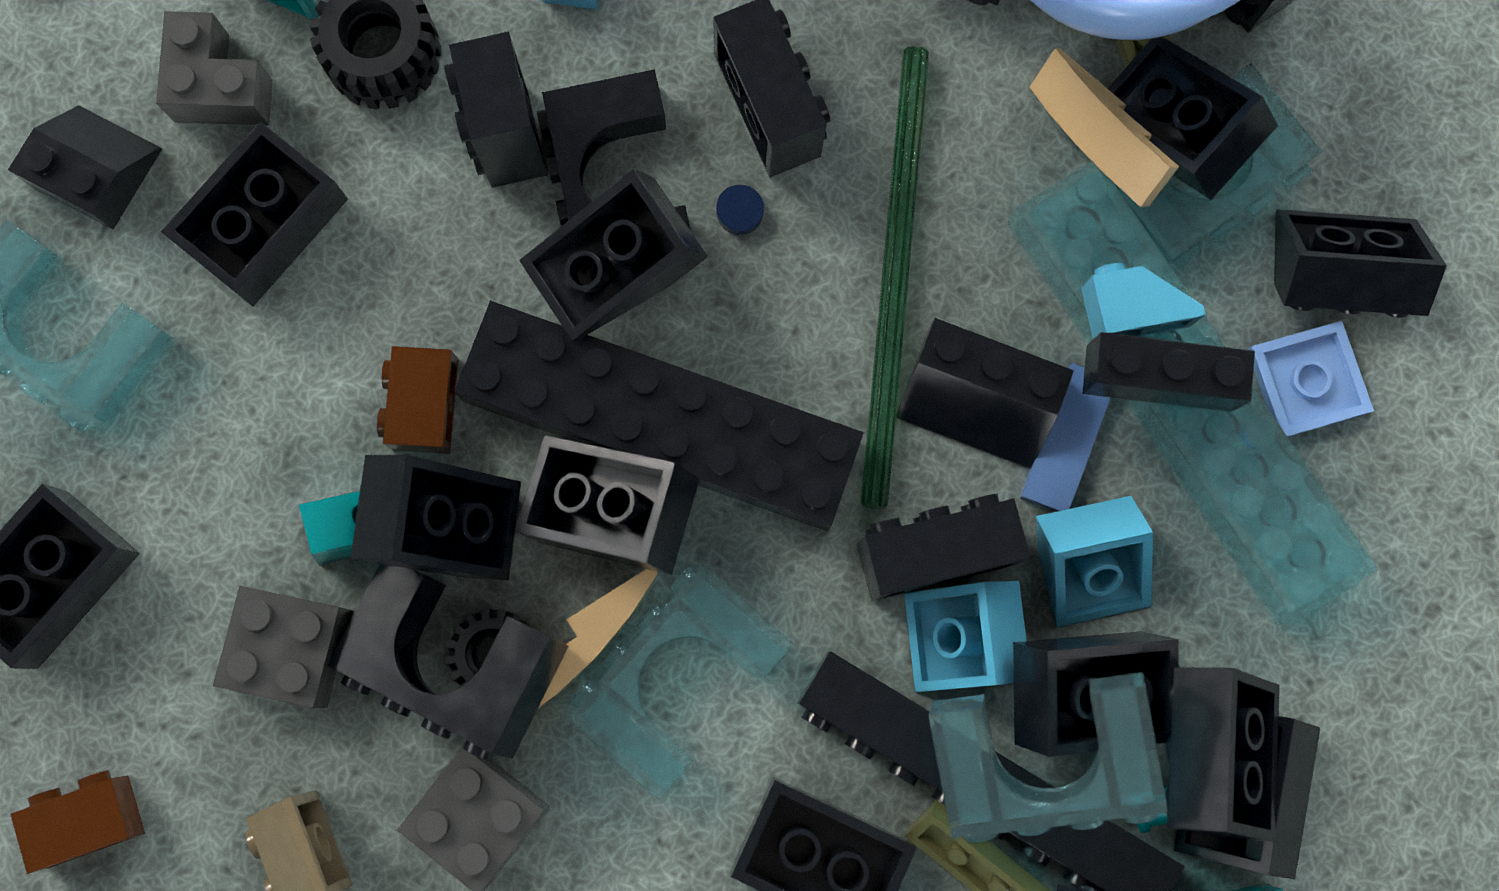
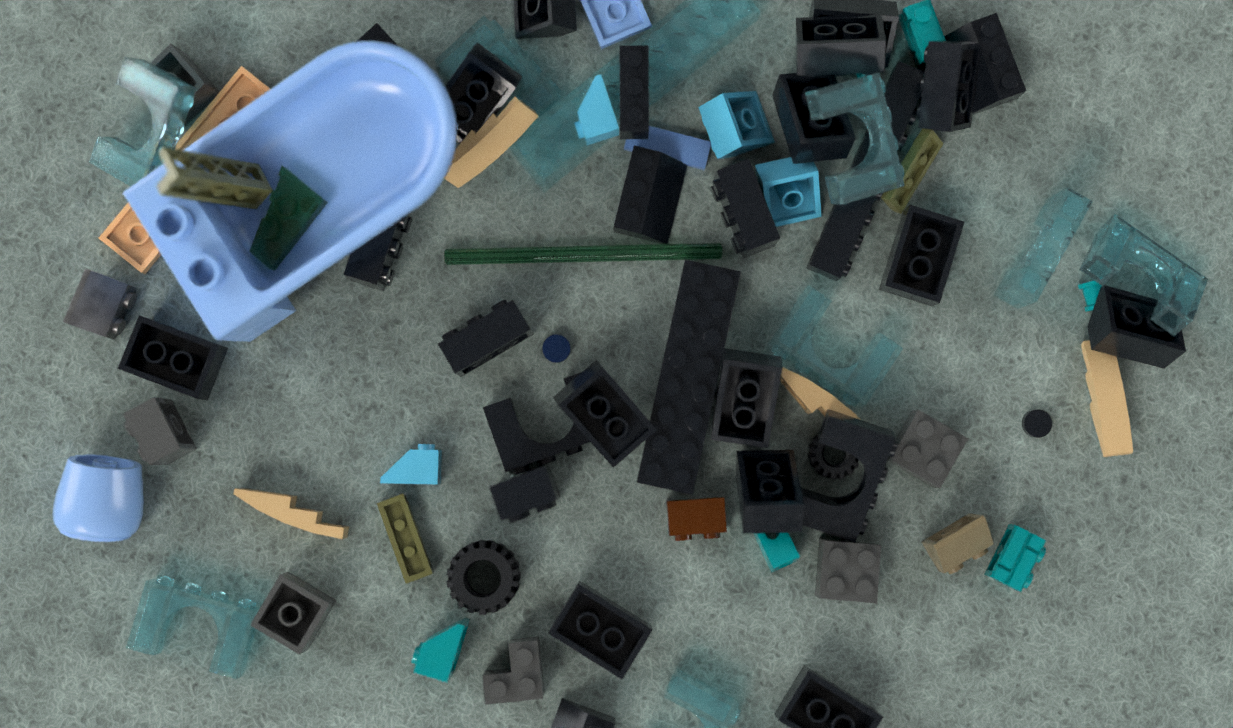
camera: 90 degrees left, 5 degrees up
(78, 822) = (958, 668): reddish brown brick -> none

